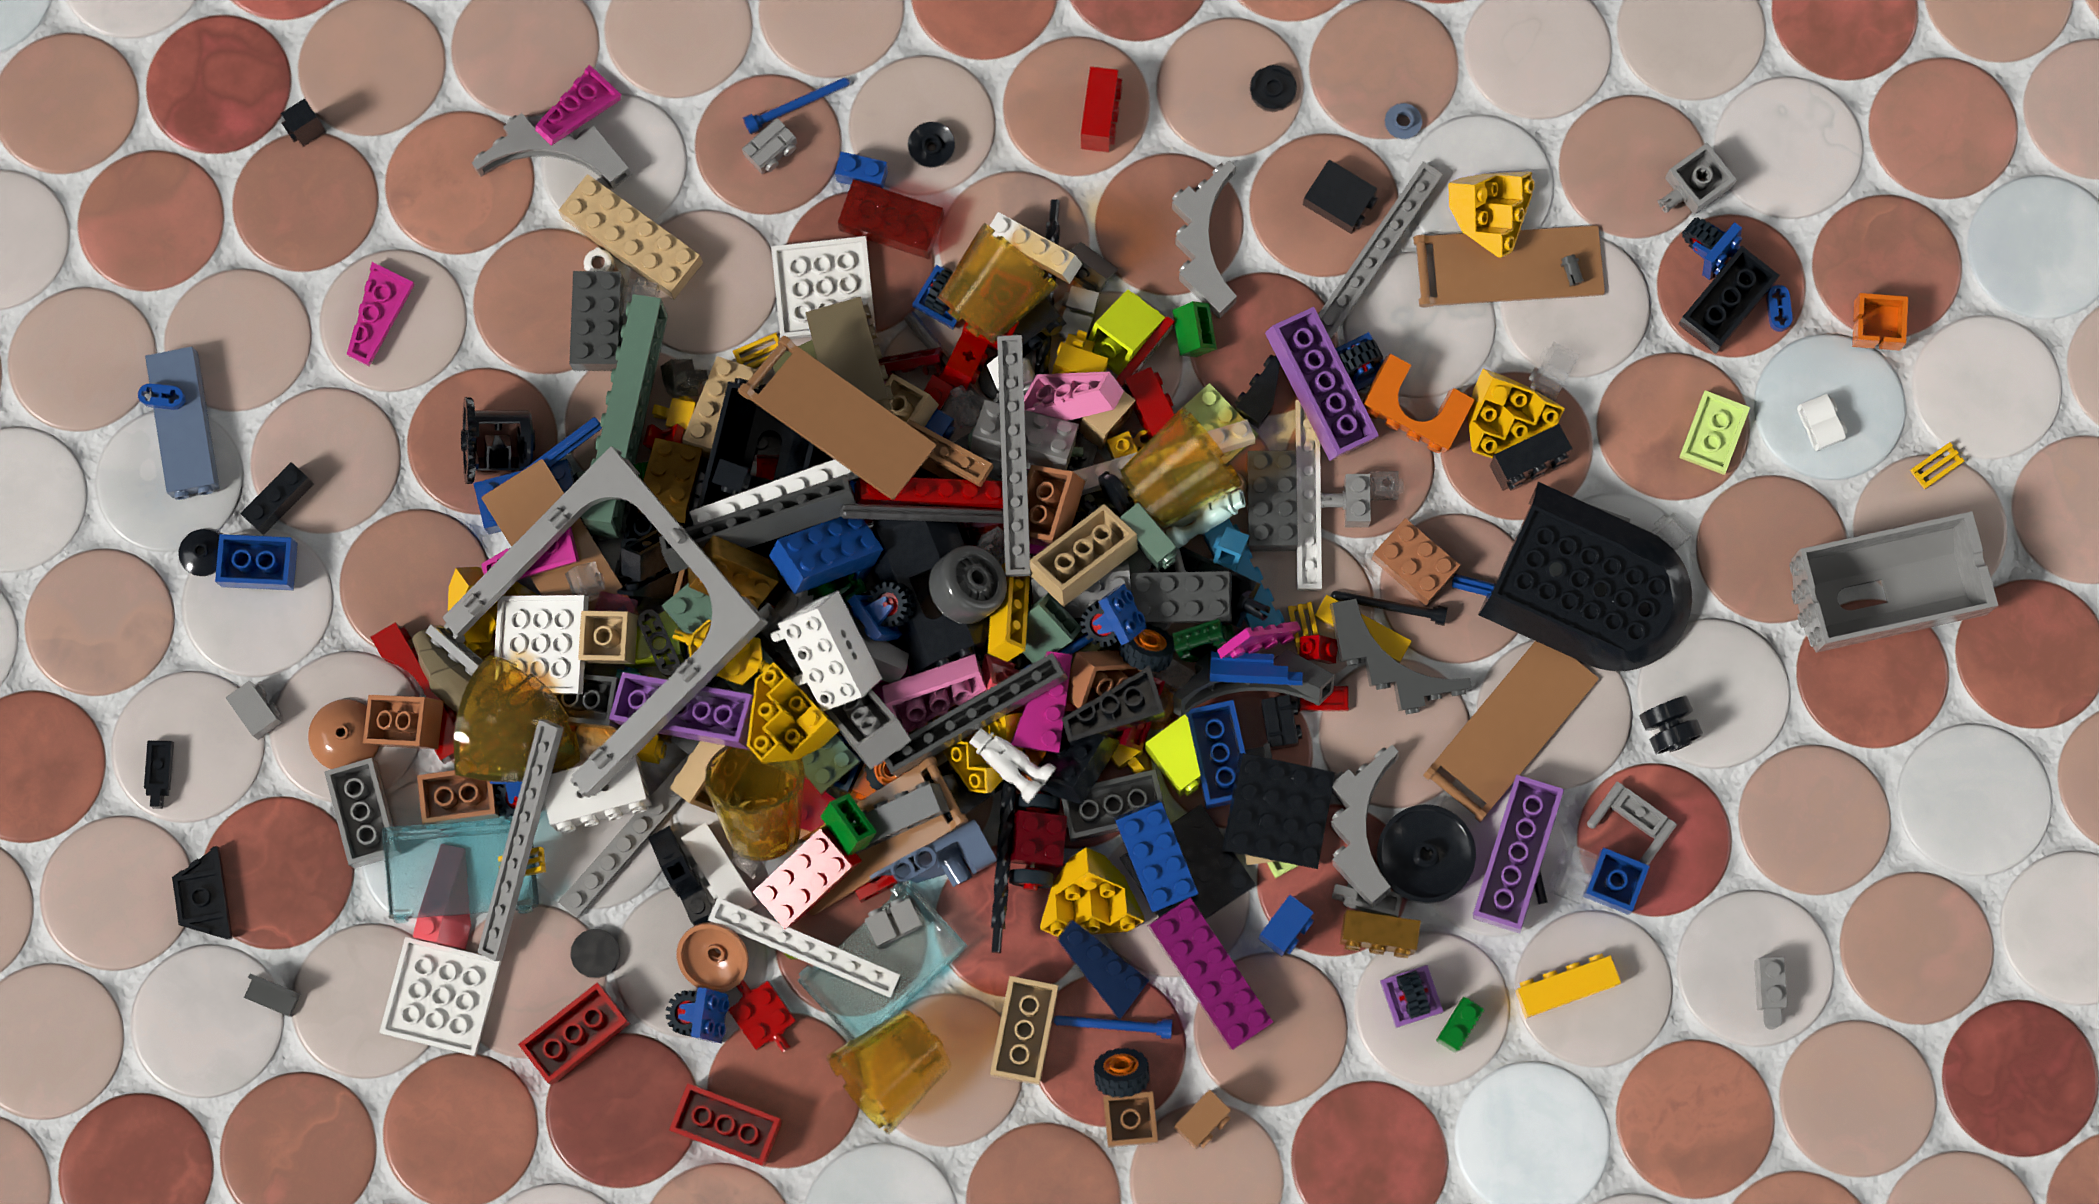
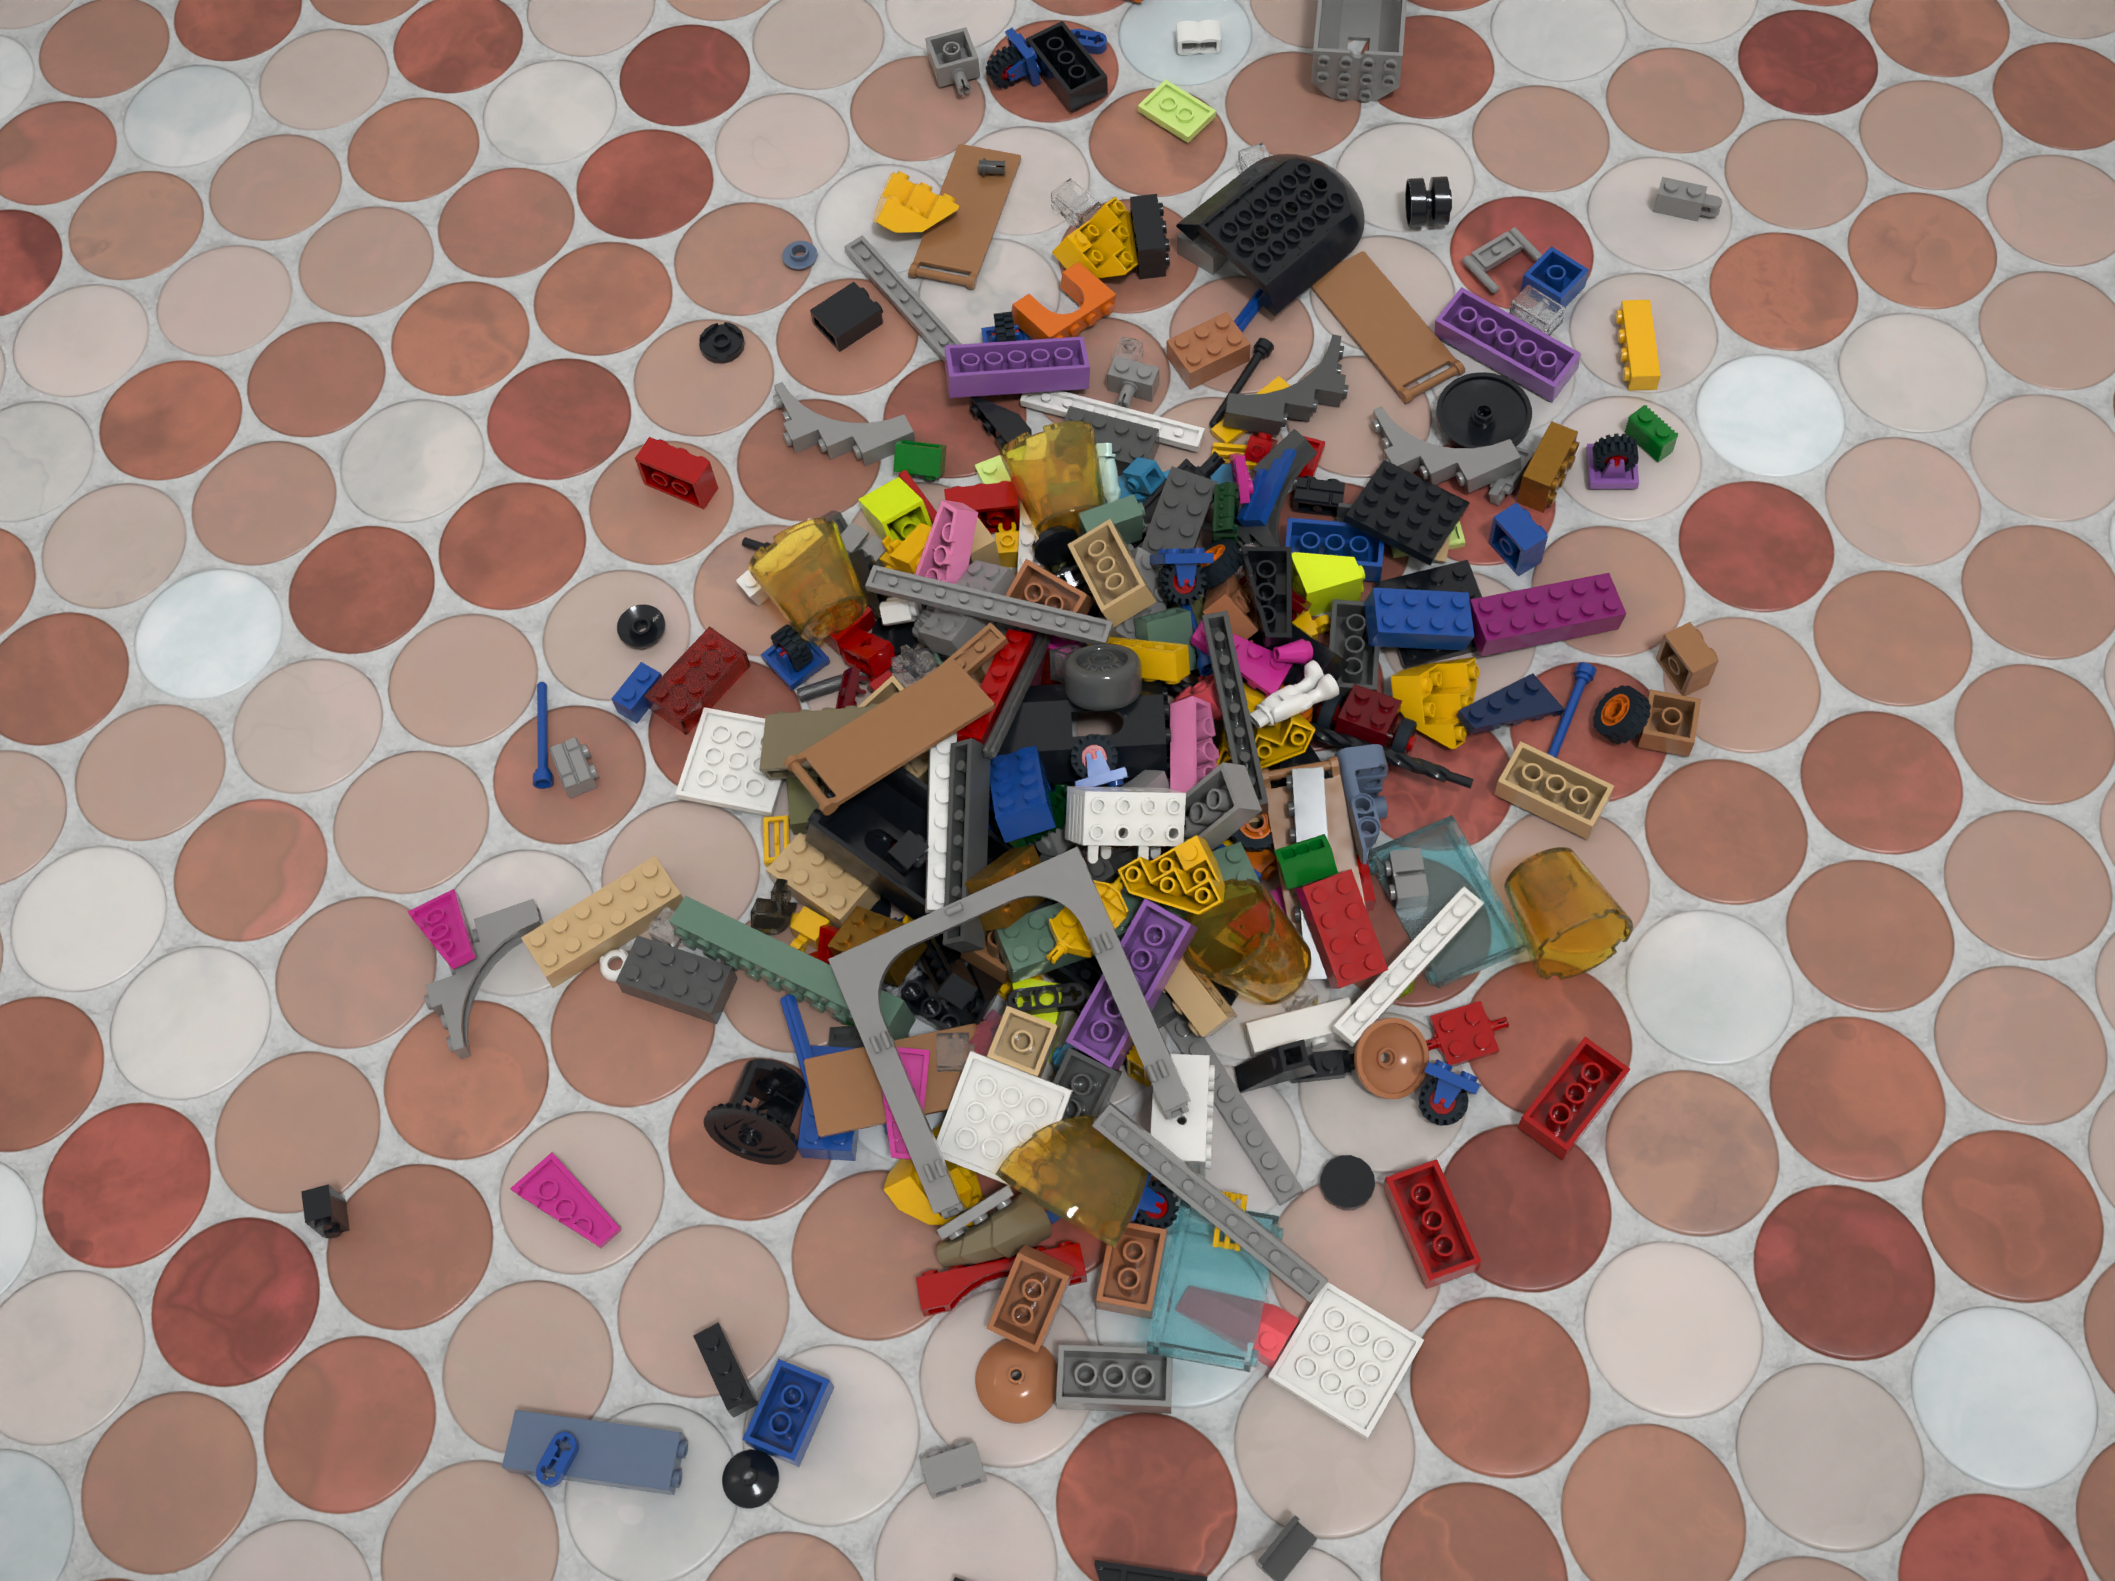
camera: 70 degrees left, 15 degrees down
(1061, 750) = (1294, 652): none -> dark pink cone

